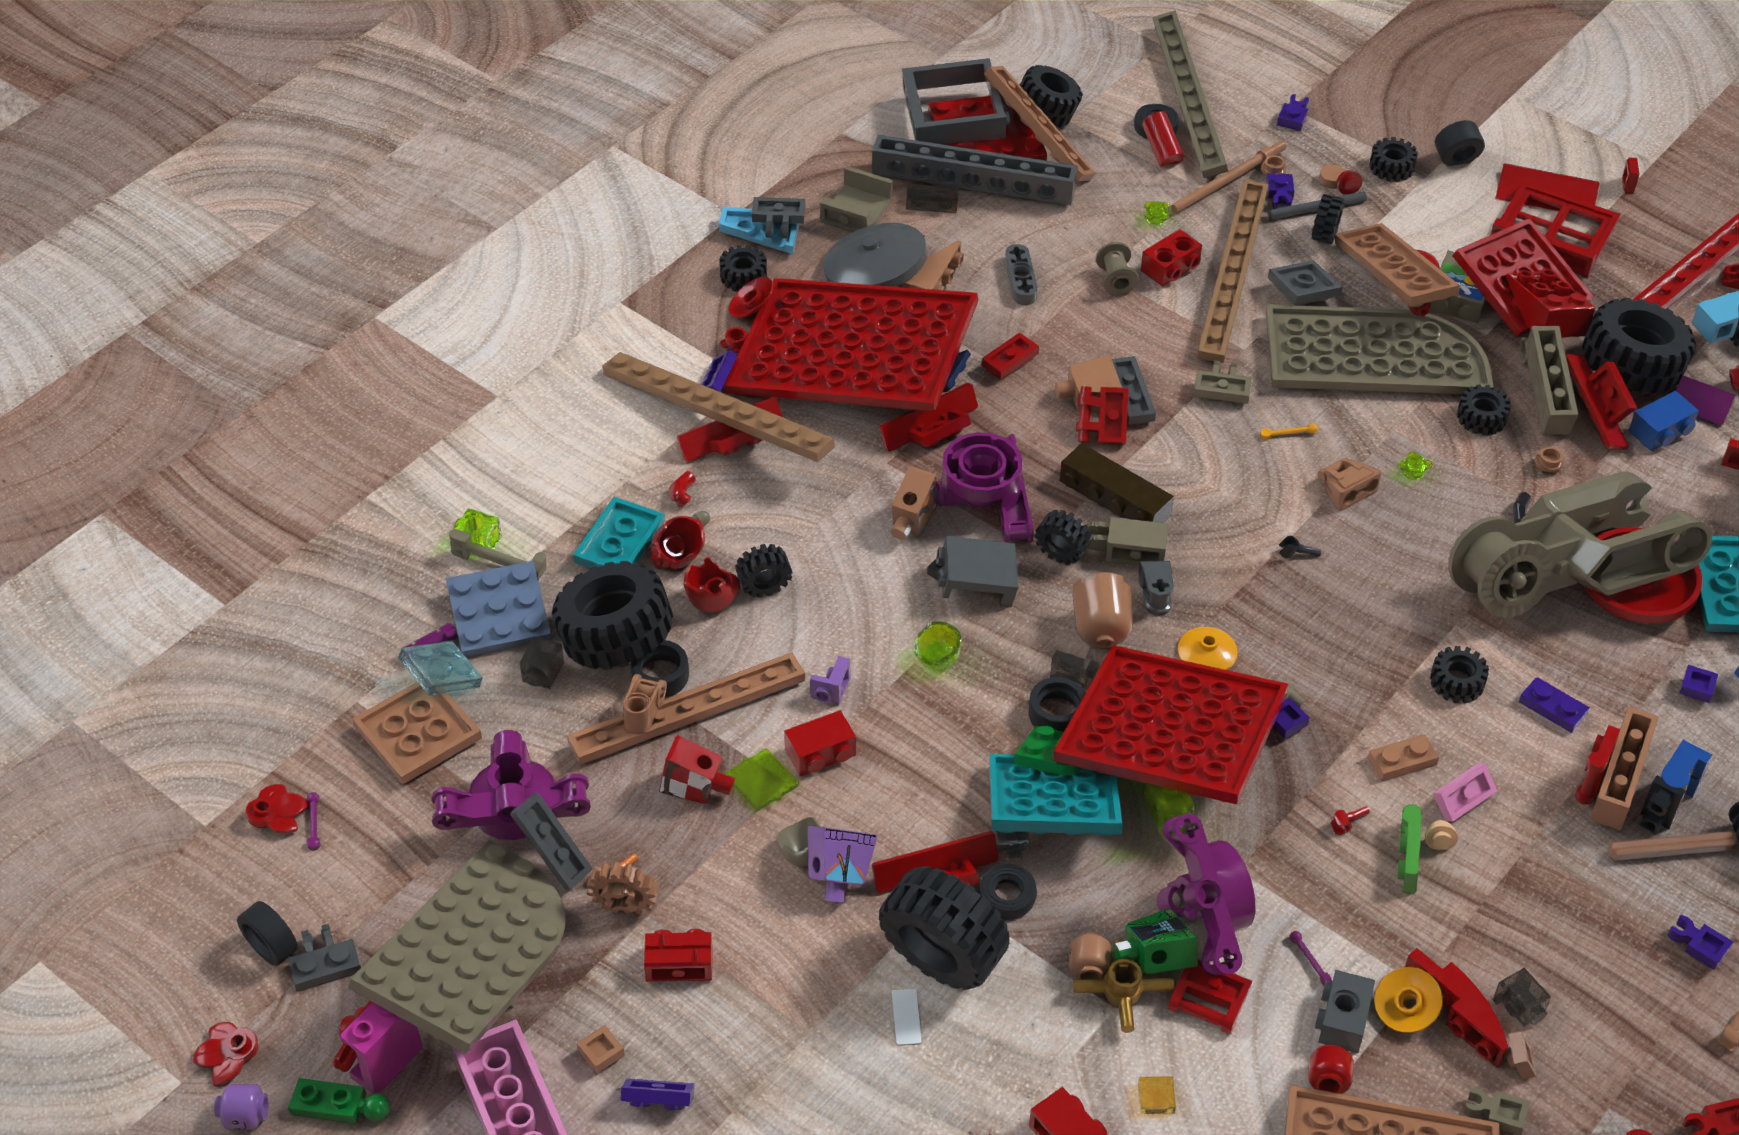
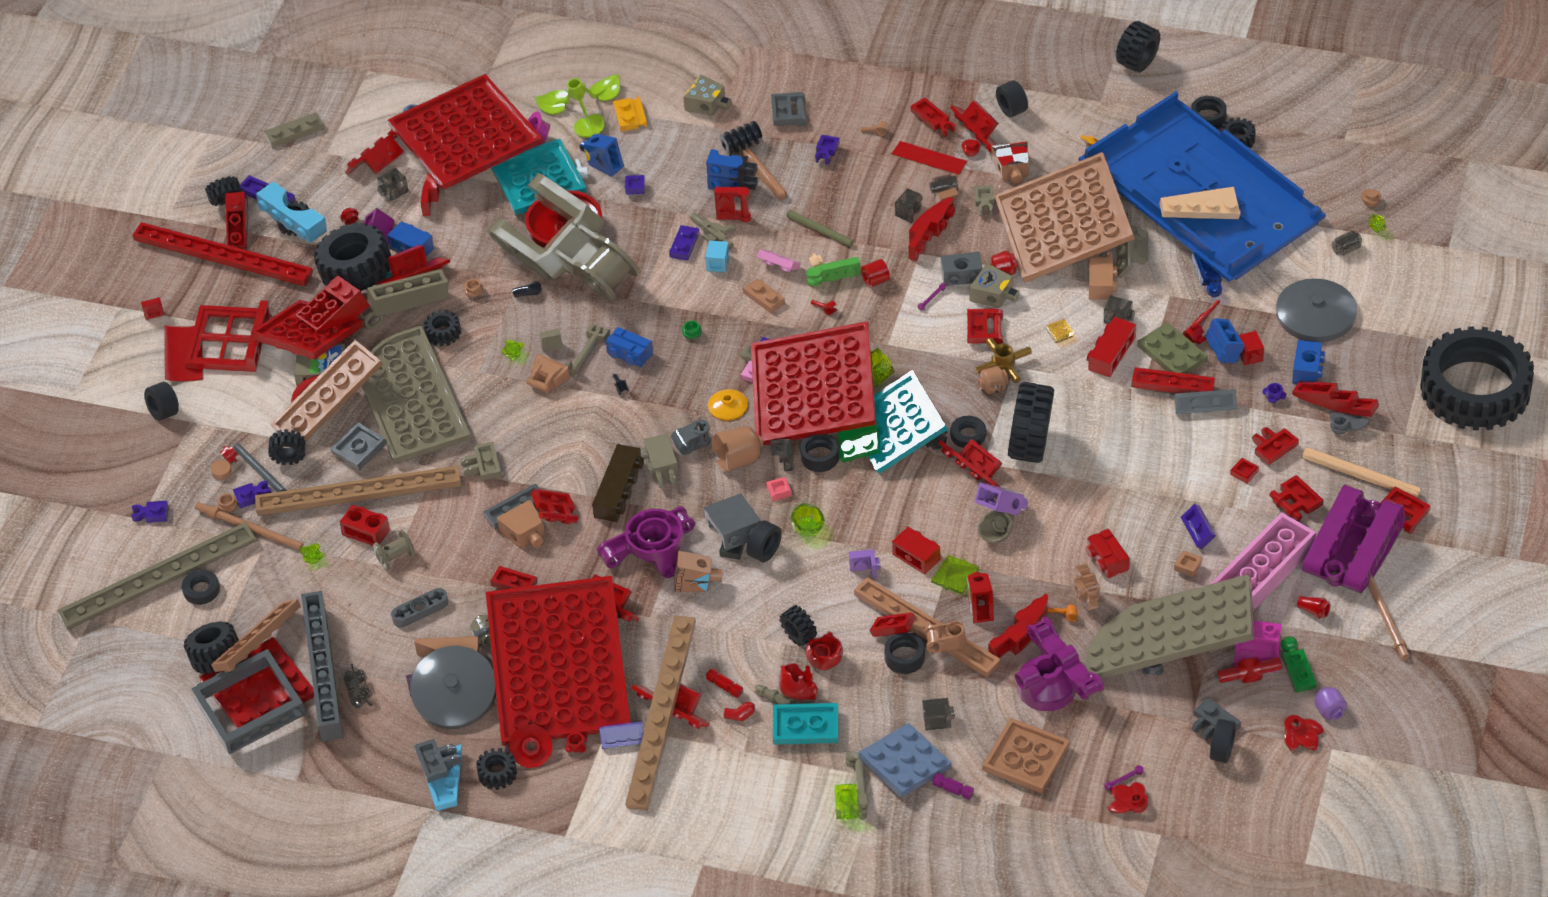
camera: 110 degrees left, 0 degrees up
(440, 667) = (974, 761): clear light blue plate -> none
(551, 841) = (1076, 632): dark grey plate -> none
(612, 615) = (883, 651): black tyre -> none
(615, 806) = (1016, 636): none -> red slope
(706, 666) = (892, 624): none -> red plate
(735, 490) = (724, 683): none -> red axle
(858, 202) = (386, 732): dark tan panel -> none
(906, 1016) = (1076, 449): white sticker -> none
(923, 584) = (764, 541): none -> black tyre
(1021, 648) = (778, 489): none -> coral tile
(1062, 537) = (682, 488): black tyre -> none
(1158, 943) = (970, 348): green torso -> none
(1162, 139) = (229, 569): red brick -> none
(1214, 890) = (928, 327): magenta piece -> none
(1266, 434) = (517, 430): light orange hinge -> none
(1286, 1036) = (992, 287): none -> dark tan torso
(1358, 573) = (629, 347): none -> blue brick
(1366, 652) = (691, 329): none -> green plate
(1383, 894) = (875, 273): none -> red piece
(1393, 159) = (191, 446): black tyre -> none
(1404, 558) = (594, 337): none -> dark tan hinge
(1404, 985) = (940, 239): light orange dish -> none
(1409, 501) = (550, 340): none -> dark tan tile
(1459, 687) = (686, 292): black tyre -> none
(1503, 724) = (717, 256): none -> medium azure brick
(1521, 873) = (820, 228): none -> olive bar
(1553, 1064) = (943, 183): none -> clear smoke brick
(1563, 748) = (715, 231): none -> dark tan piece
(1624, 768) = (701, 195): nougat brick -> none
(1640, 1084) = (929, 157): none -> red sticker

